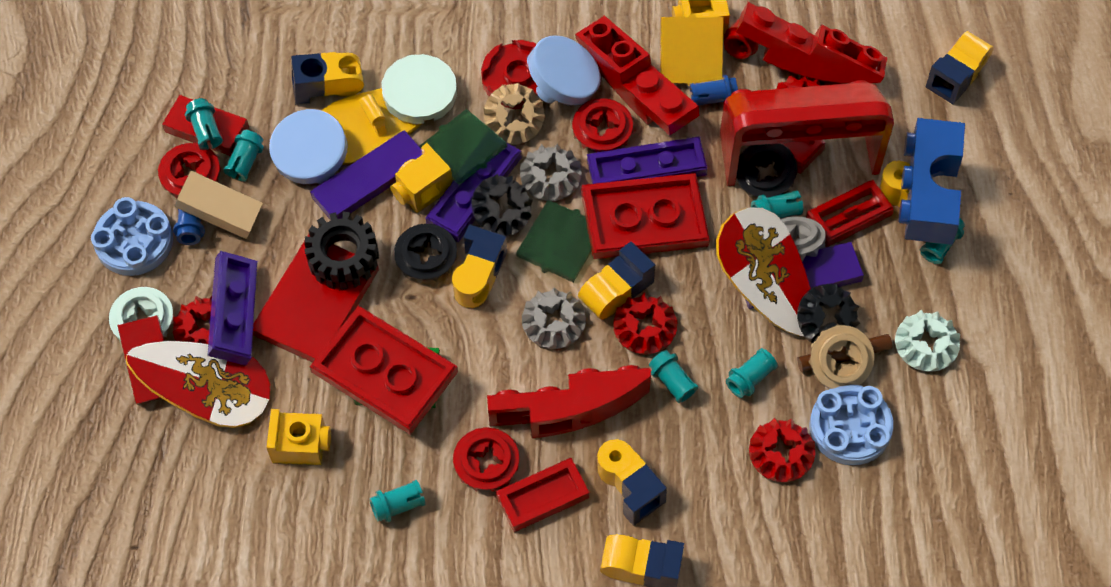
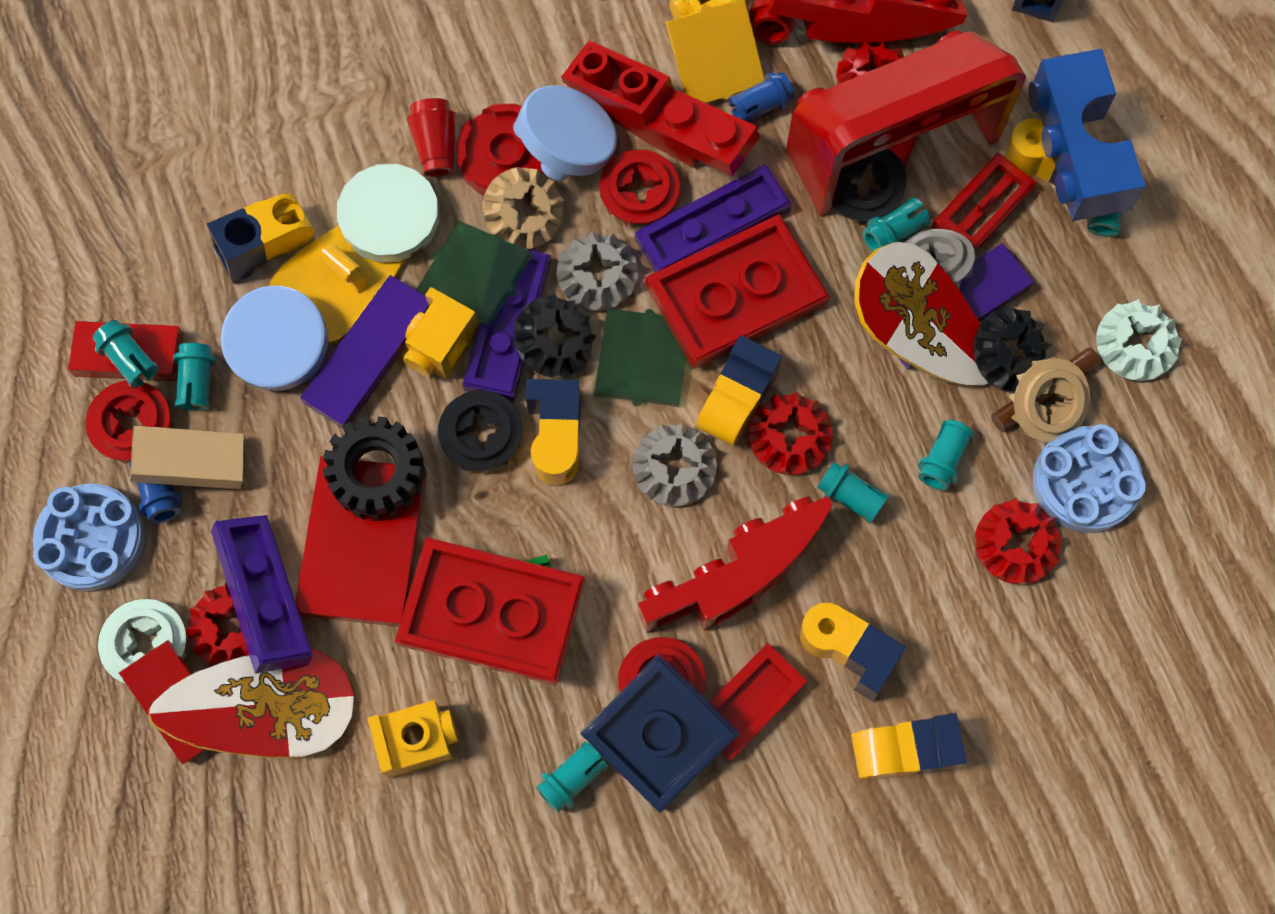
camera: 20 degrees left, 10 degrees up
(469, 489) = (660, 732): none -> dark blue tile
(471, 46) = (433, 134): none -> red cone

